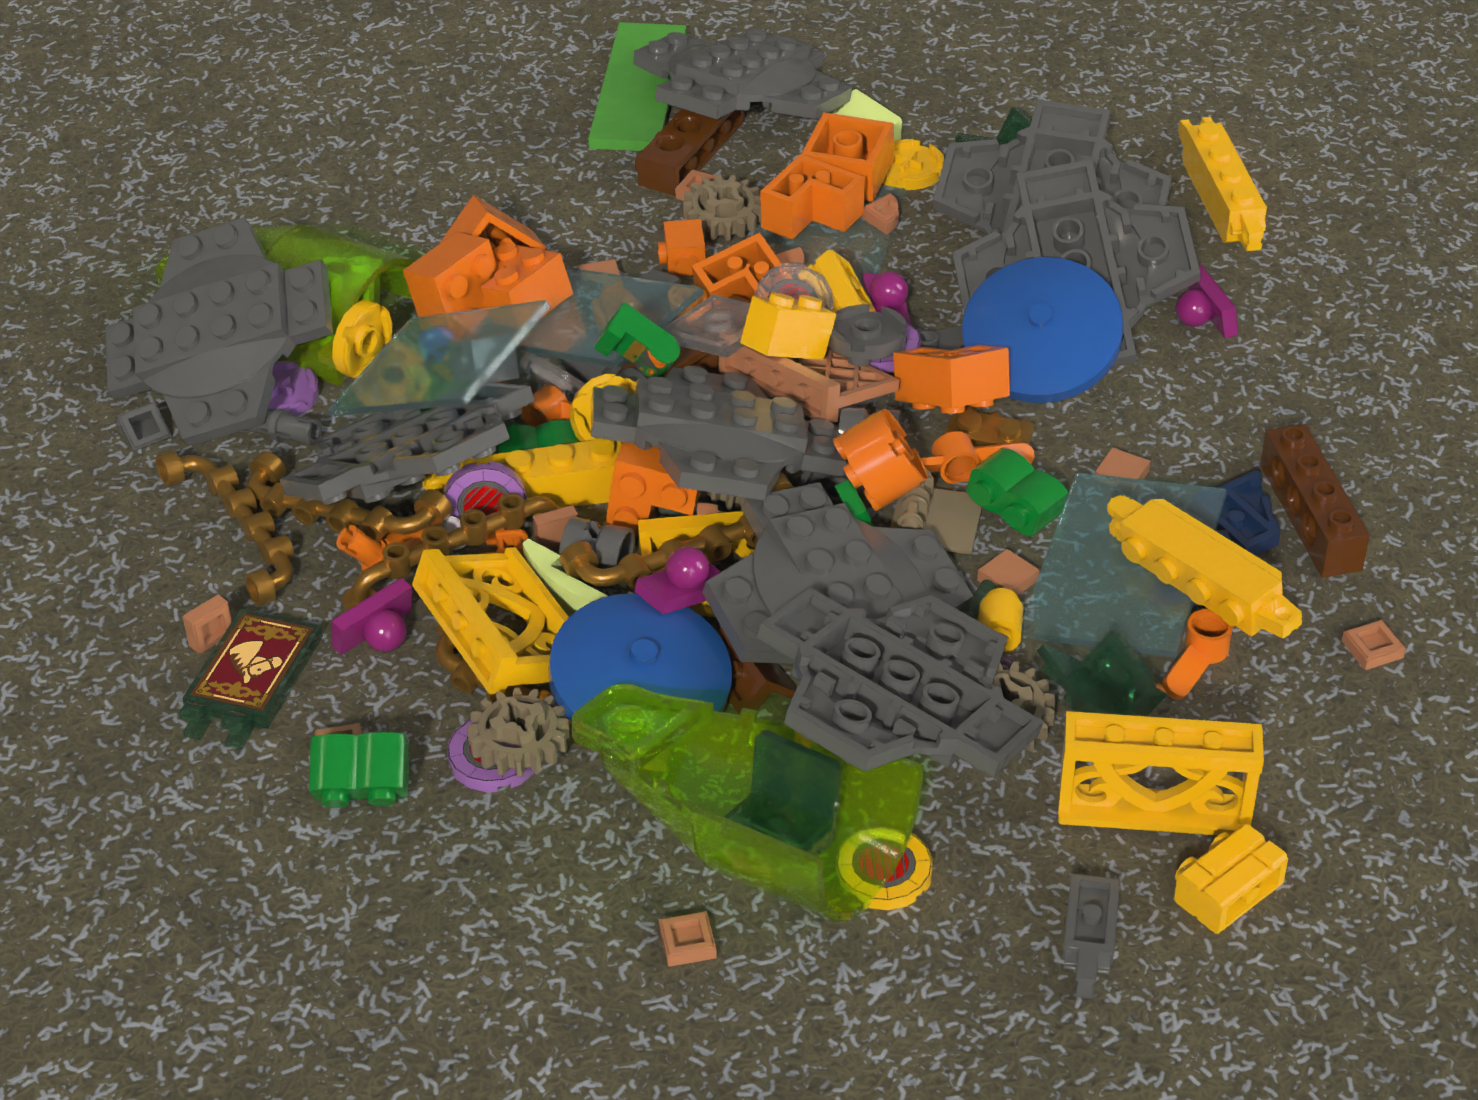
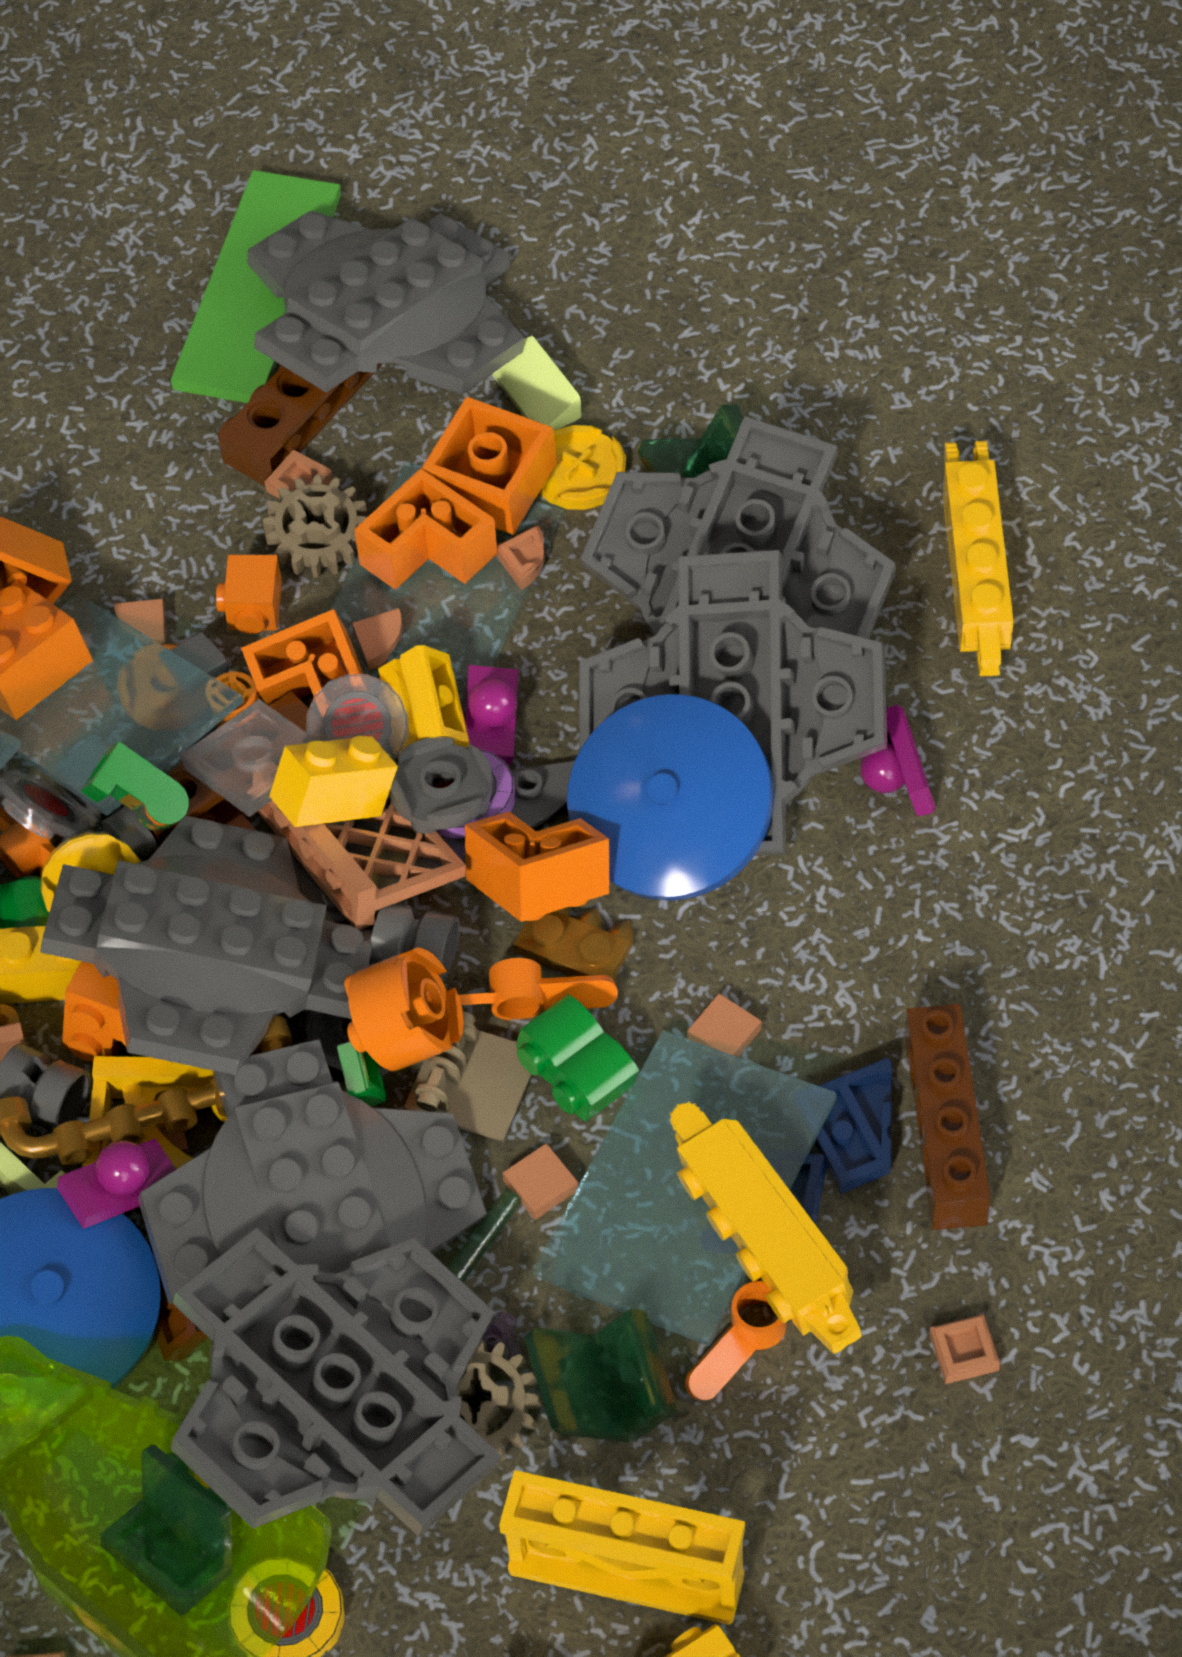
camera: 10 degrees right, 15 degrees up
(1003, 613) = (508, 1259): yellow brick -> none

